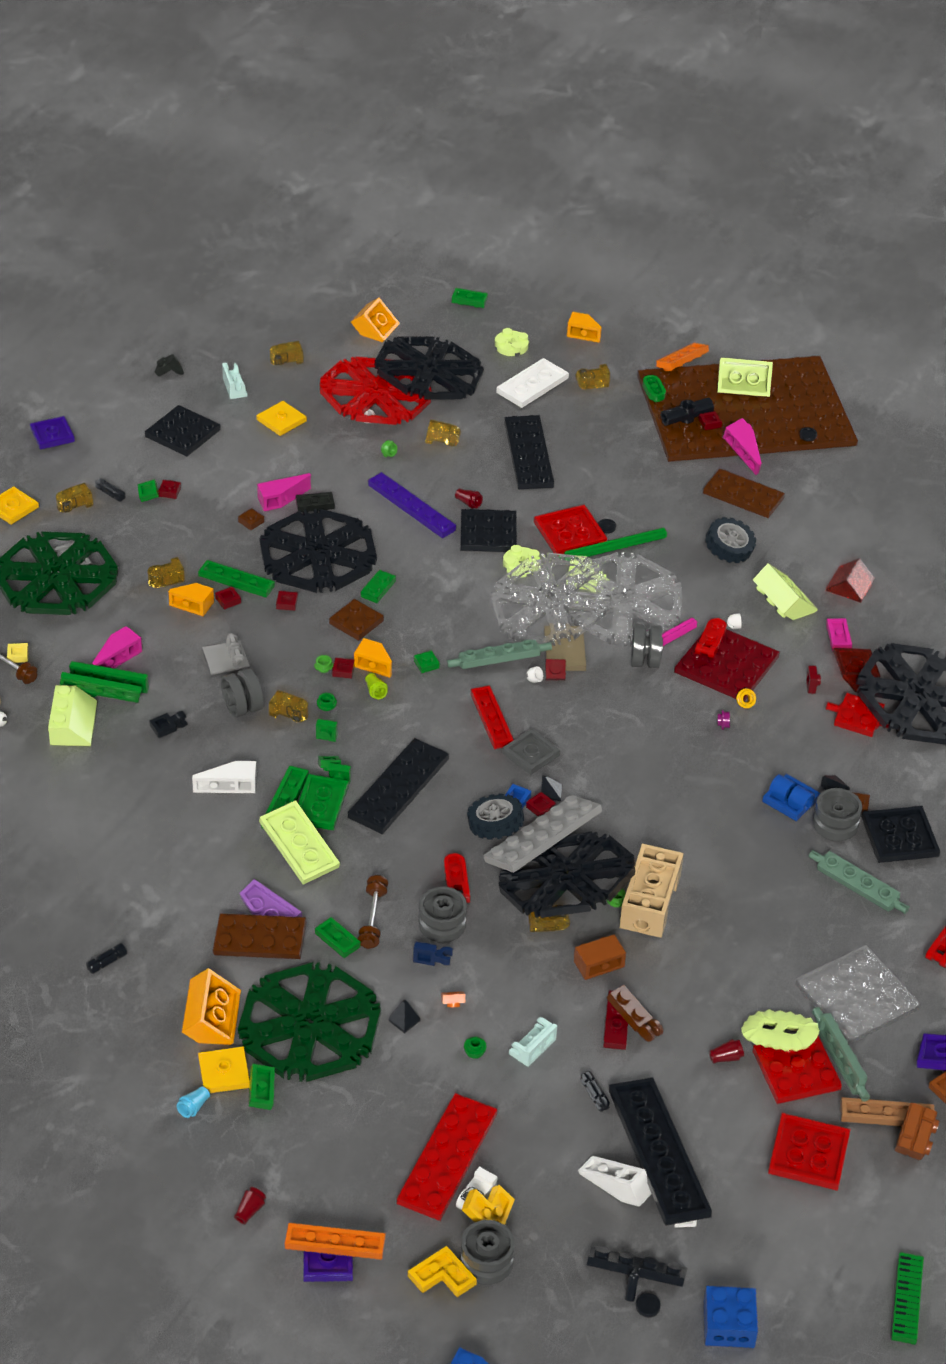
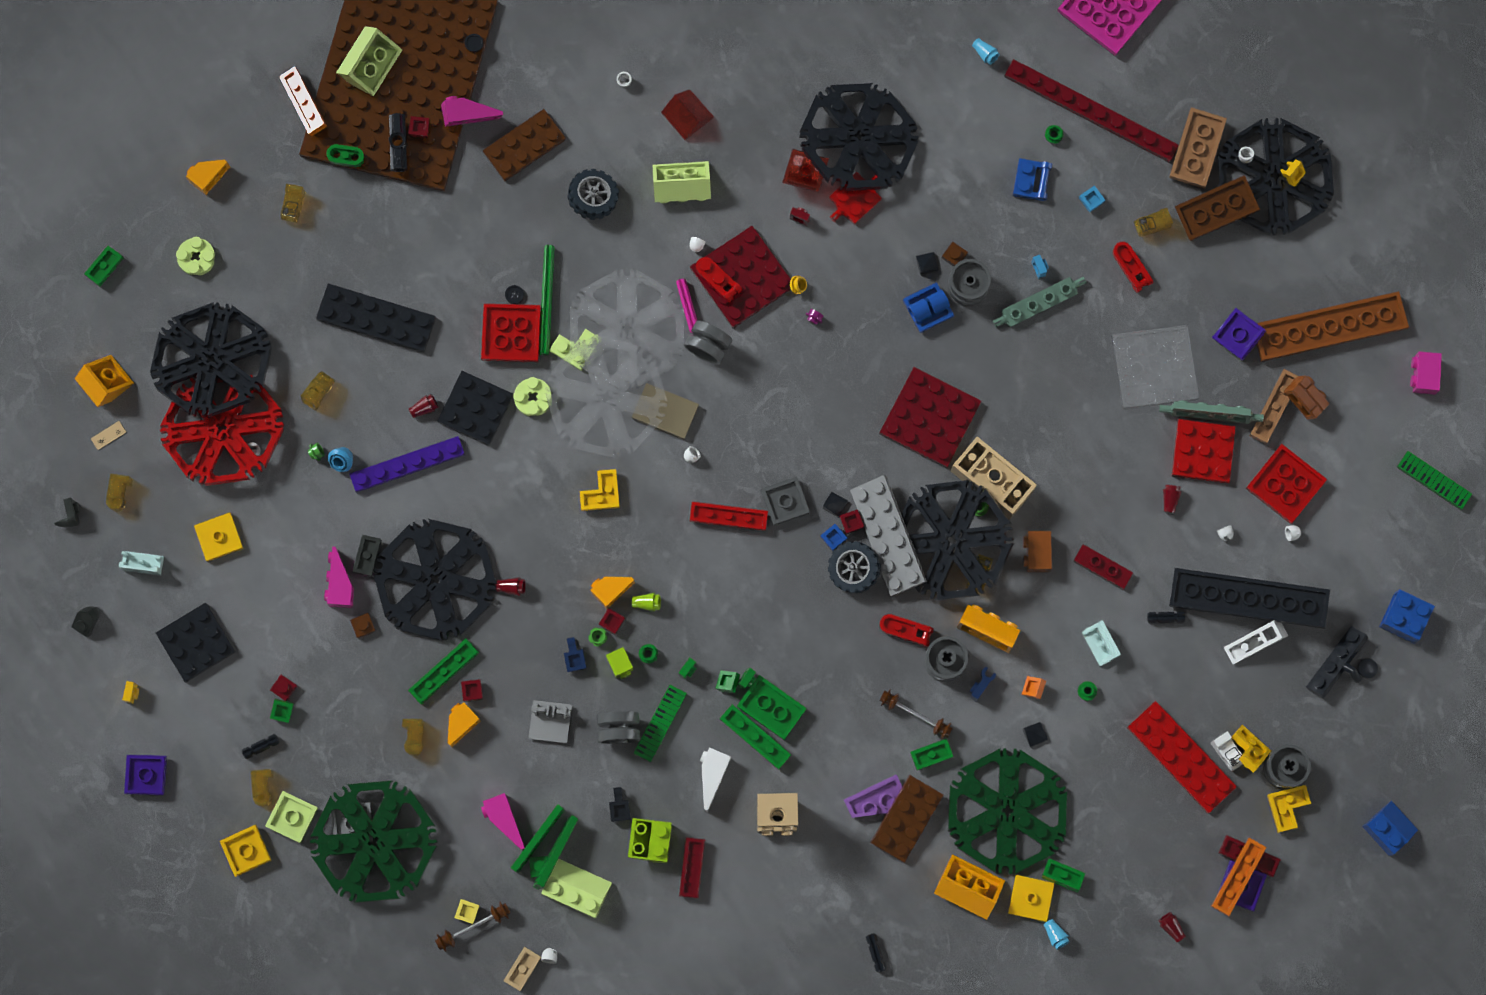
camera: 65 degrees left, 35 degrees up
(55, 520) = (291, 817): none -> yellowish green plate
(119, 404) = (131, 692): none -> yellow plate
(130, 792) = (692, 868): none -> dark red plate
(143, 752) = (650, 840): none -> lime slope
(215, 801) = (781, 805): none -> tan plate
(253, 334) = (72, 510): none -> pearl dark grey plate
(263, 731) = (660, 723): none -> green tile
(287, 600) = (499, 637): dark red plate -> none
(288, 706) = (642, 688): clear yellow leg -> none
(296, 653) = (574, 658): none -> dark blue plate
(299, 842) = (817, 745): yellowish green plate -> none
(306, 683) = (620, 663): none -> lime brick
(332, 340) = (108, 435): none -> tan sticker
(339, 596) = (512, 586): none -> dark red cone
(356, 619) = (548, 582): reddish brown plate -> none
(366, 1269) = (1232, 847): none -> dark red plate
(378, 586) = (510, 544): green plate -> none
(391, 461) = (341, 459): none -> dark azure cone
(398, 786) = (775, 631): black plate -> none
(426, 661) = (631, 542): green plate -> none
(461, 631) = (606, 496): none -> yellow plate
(495, 937) = (989, 628): none -> light orange slope
(499, 654) = (653, 474): sand green plate -> none
(532, 382) = (273, 266): white plate -> none
(555, 669) = (693, 433): dark red plate -> none
(635, 1013) = (1108, 552): reddish brown hinge -> none
(687, 828) = (930, 417): none -> dark red plate
(720, 1113) = (1225, 533): none -> white hinge
(759, 1176) = (1292, 532): none -> white hinge
(805, 1036) = (1179, 456): yellowish green piece -> none
(838, 633) = (752, 161): dark pink plate -> none
(849, 528) = (625, 75): none -> white hinge
(893, 866) = (1040, 266): none -> dark azure plate
(900, 834) = (1005, 240): black plate -> none

